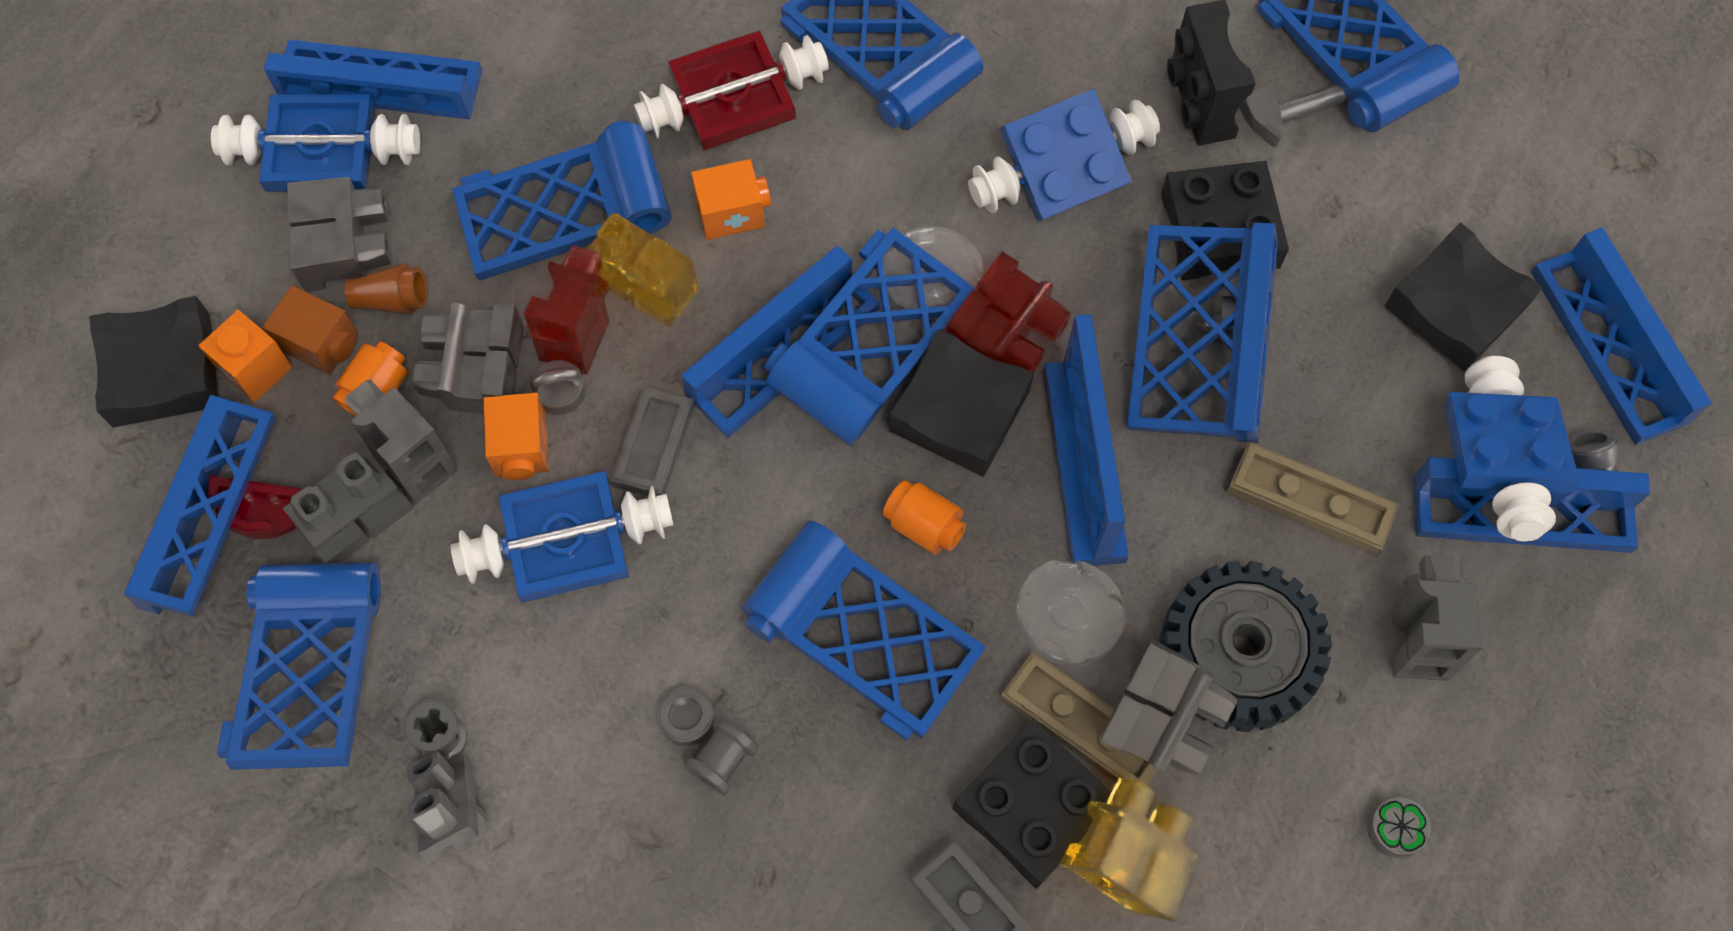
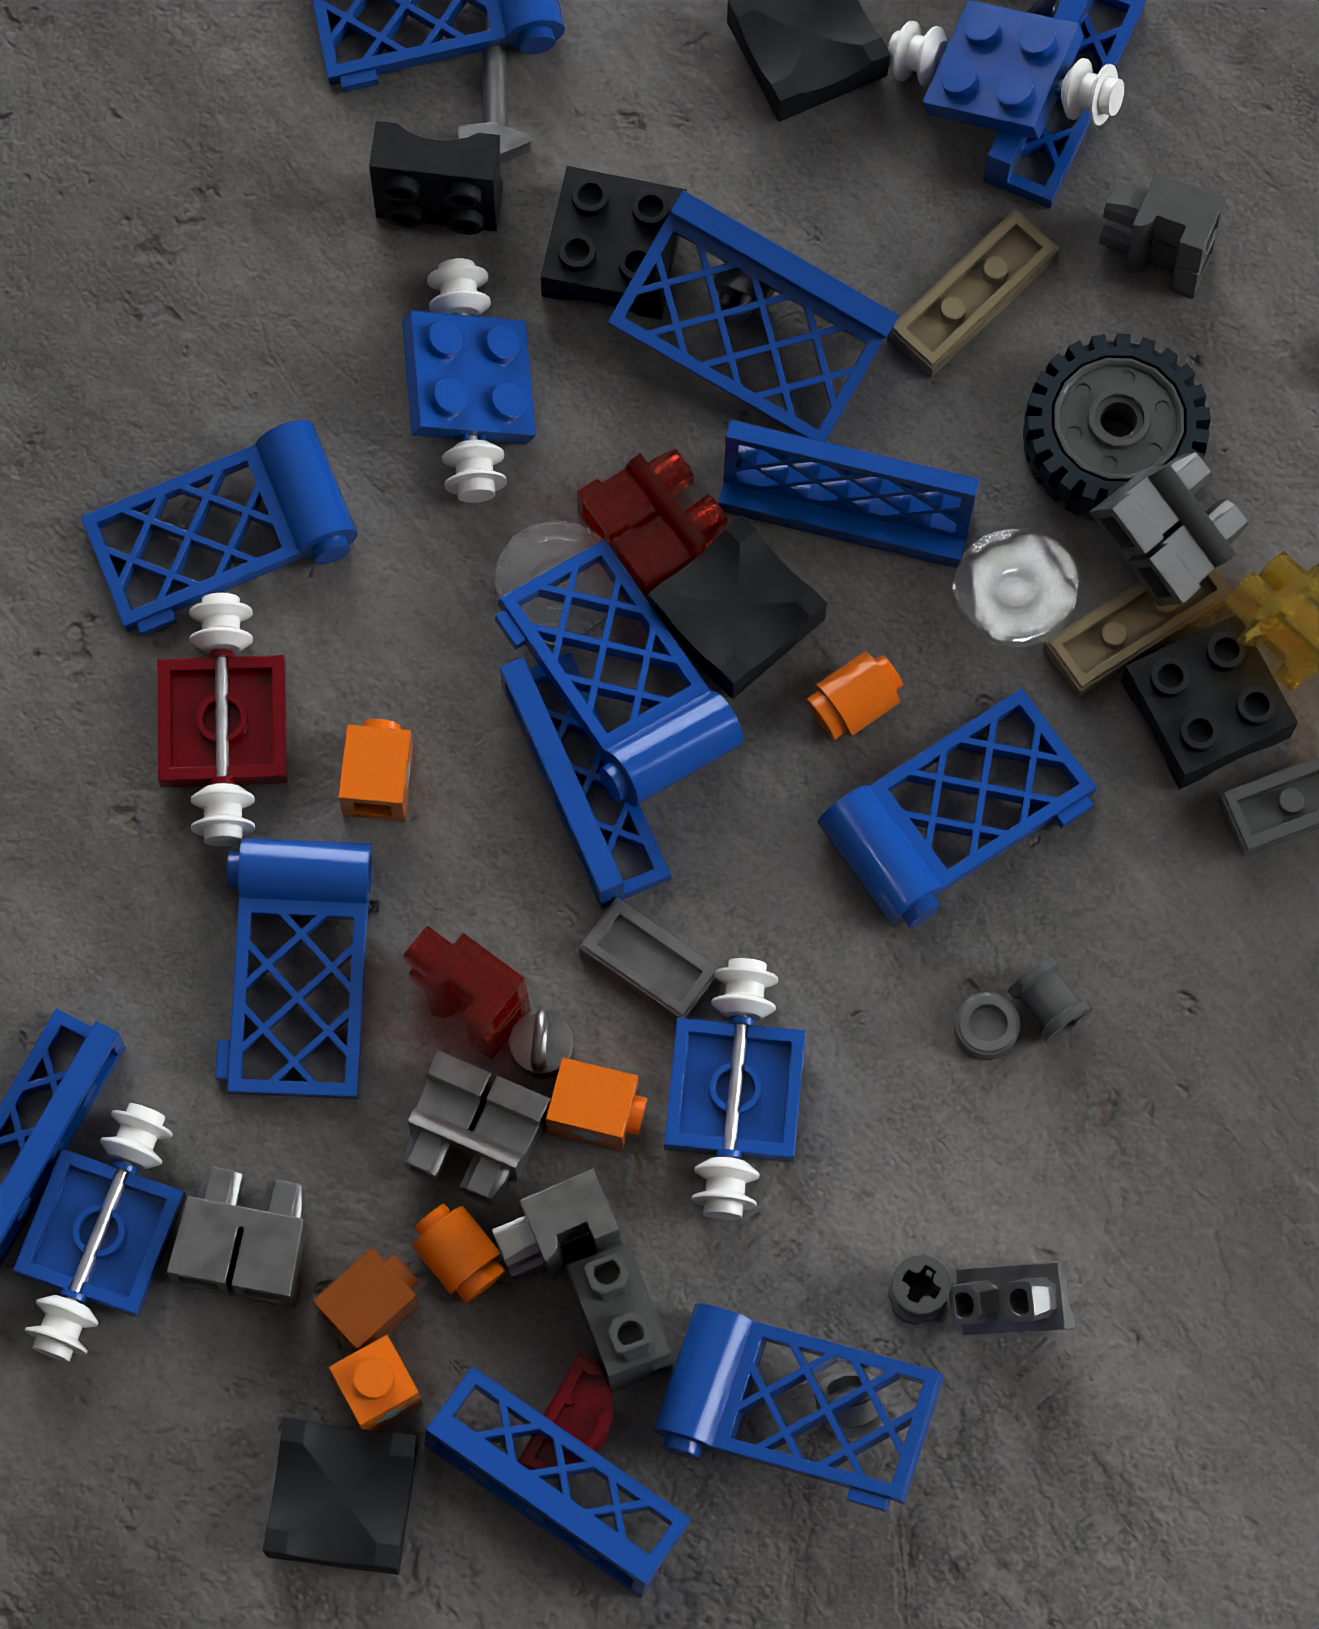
camera: 70 degrees left, 5 degrees up
(389, 290) = (343, 1201): dark orange cone -> none
(644, 269) = (444, 885): clear yellow hips -> none

